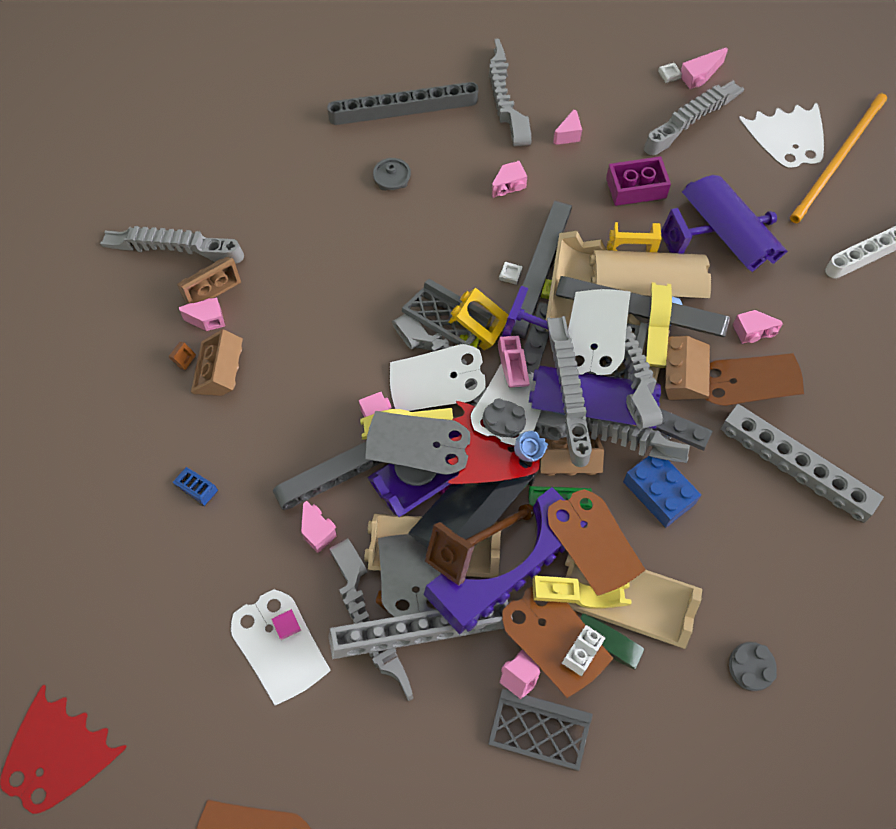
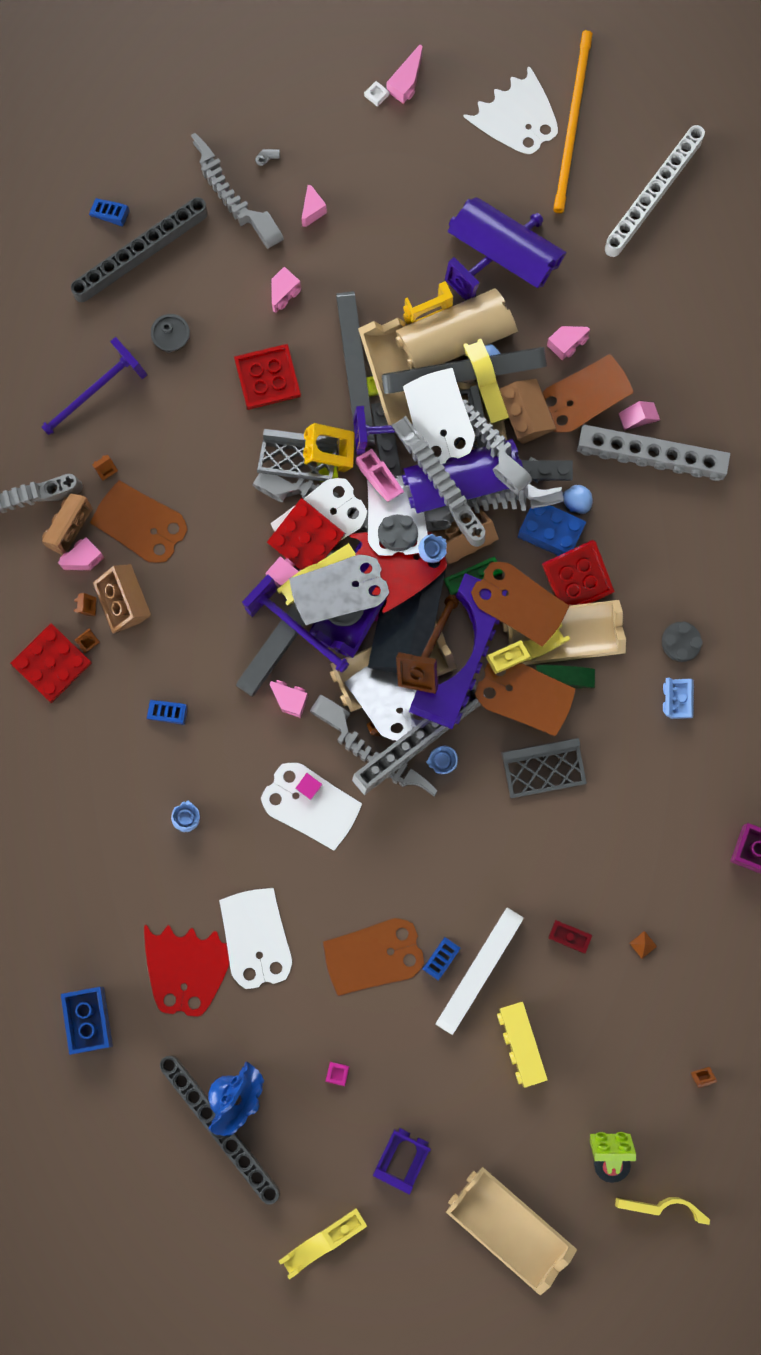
camera: 25 degrees left, 15 degrees up
(119, 392) = (51, 662): none -> red plate
(143, 746) = (251, 927): none -> white piece
(148, 593) = (185, 817): none -> light blue hair
(163, 387) = (87, 640): none -> dark orange slope
(266, 303) = (130, 517): none -> dark orange piece
(270, 251) = (105, 467): none -> dark orange tile
(340, 175) = (126, 360): none -> dark purple tile
(342, 419) = (261, 596): none -> dark purple tile
(400, 77) = (118, 220): none -> blue slope
(416, 384) = (305, 536): none -> red plate
(436, 665) = (443, 759): none -> light blue hair
(456, 241) = (267, 376): none -> red plate
(510, 273) = (331, 385): white tile -> none
(520, 674) = (511, 736): bright pink slope -> none
(550, 79) = (267, 154): none -> light grey arm
(583, 650) = (551, 694): white slope -> none
(638, 181) = (402, 237): magenta brick -> none
(664, 135) = (422, 130): light grey piece -> none
(670, 544) = (579, 575): none -> red plate
(702, 472) = (578, 499): none -> light blue hair
(724, 726) = (679, 698): none -> light blue bracket
(799, 422) = (638, 415): none -> bright pink slope

